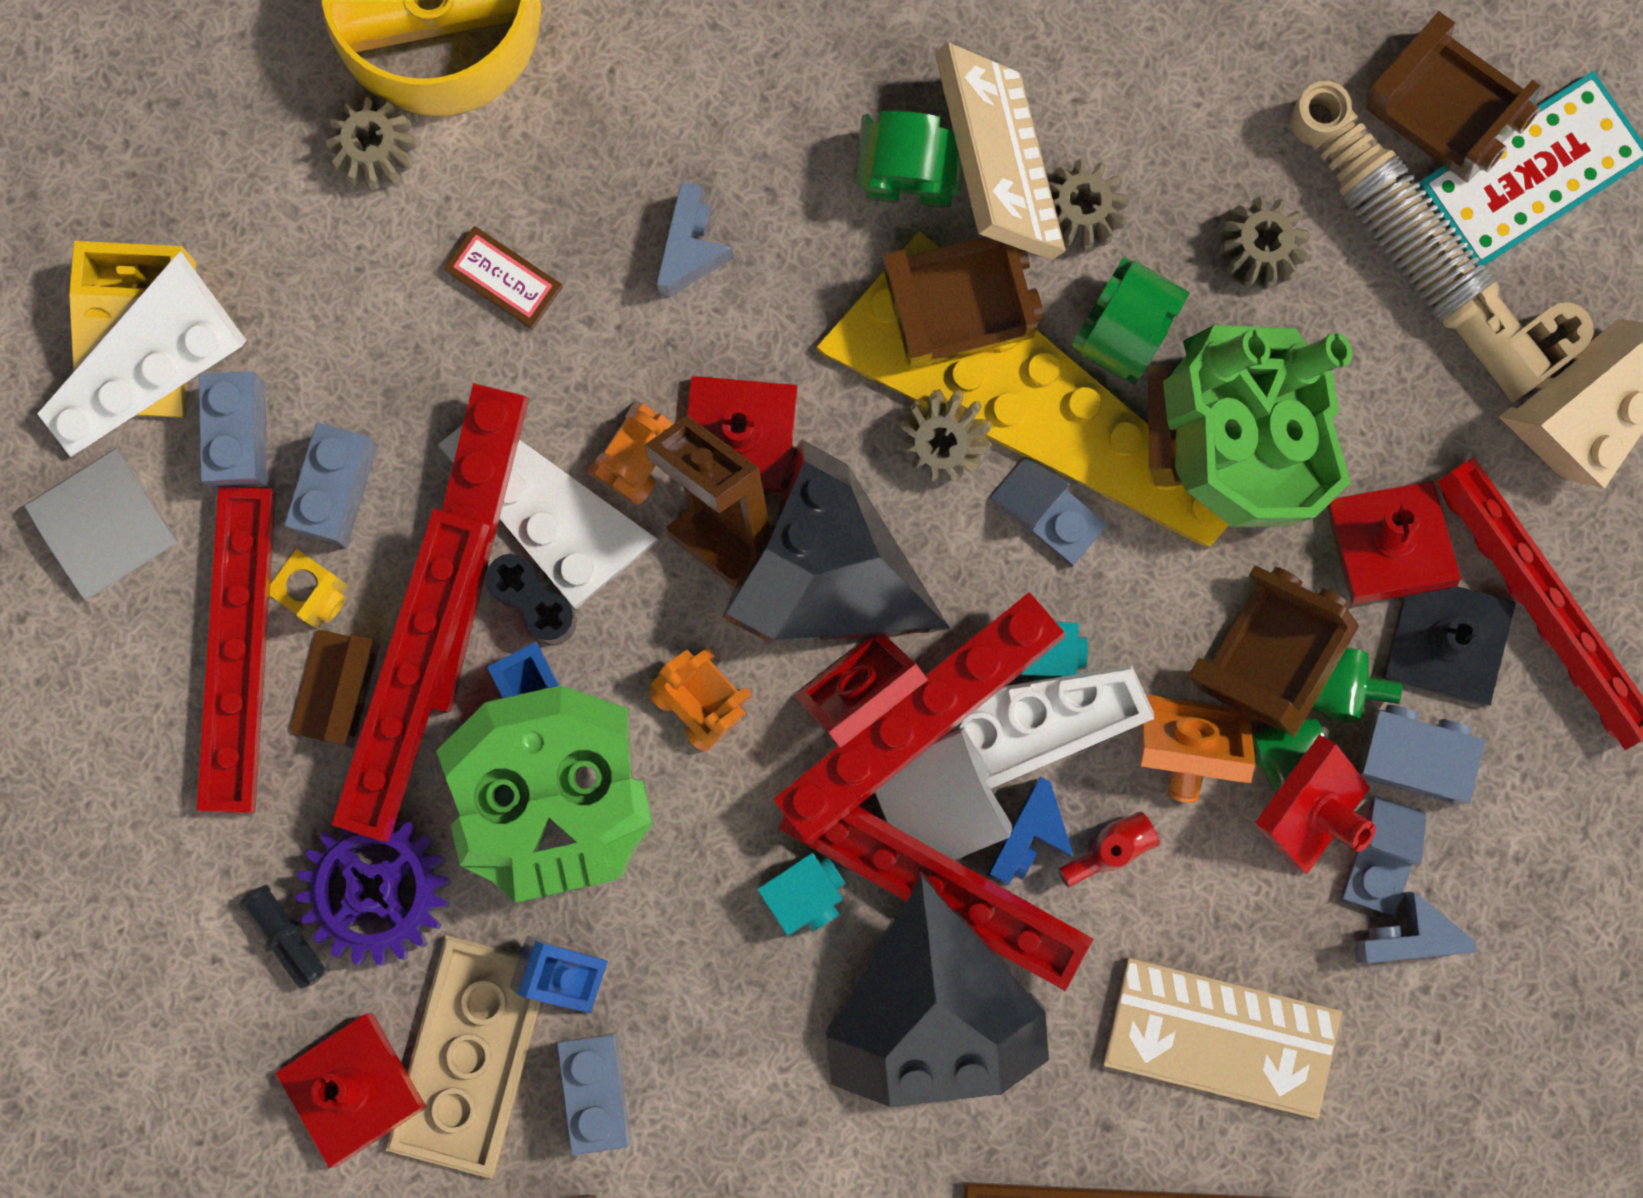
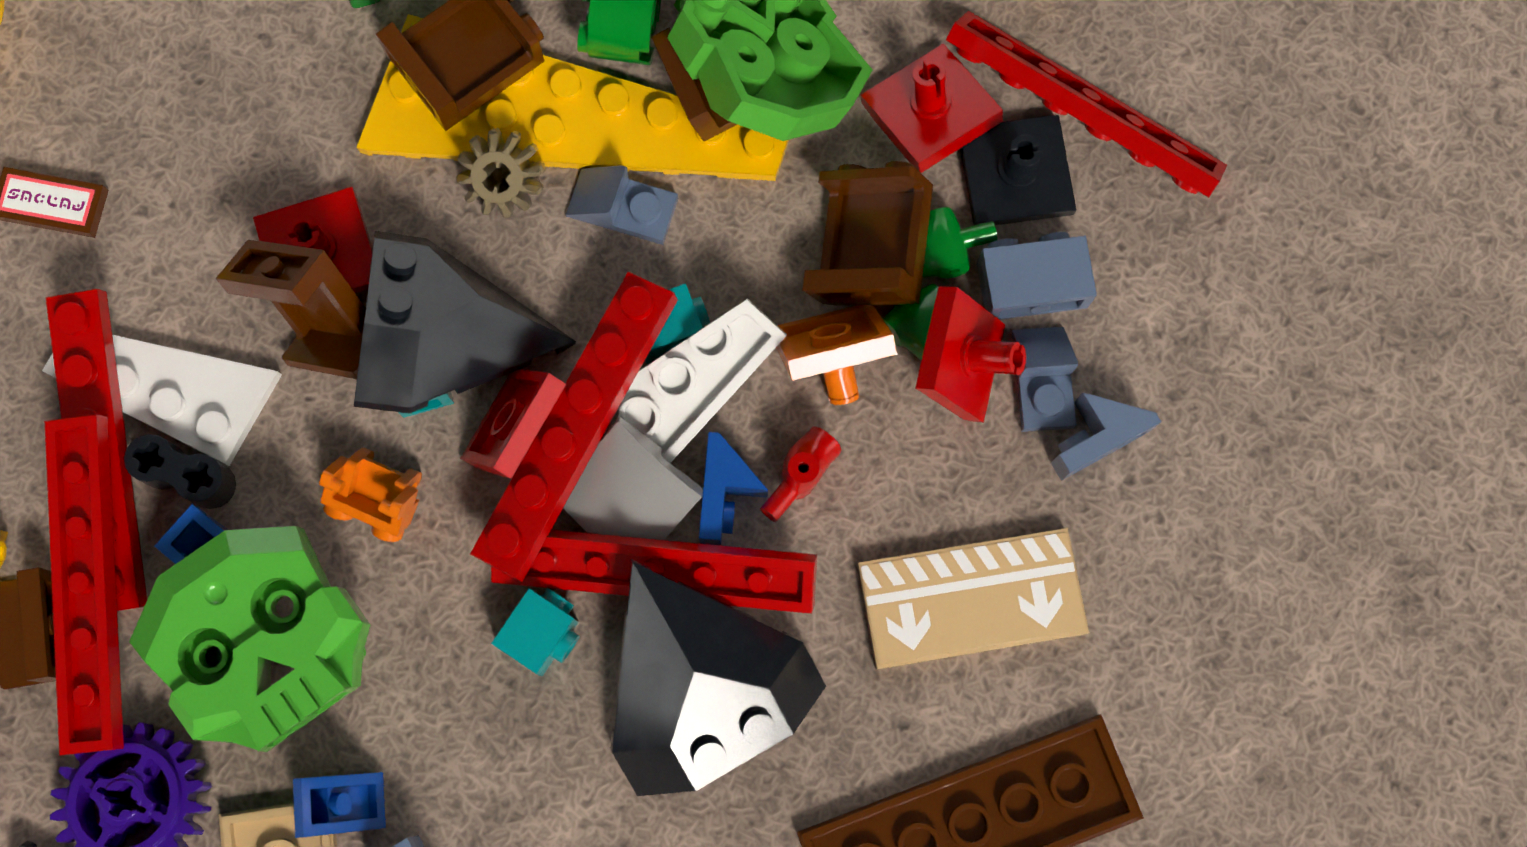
camera: 25 degrees left, 5 degrees down
(625, 460) = (221, 316): orange piece -> none
(684, 256) = (205, 112): sand blue slope -> none

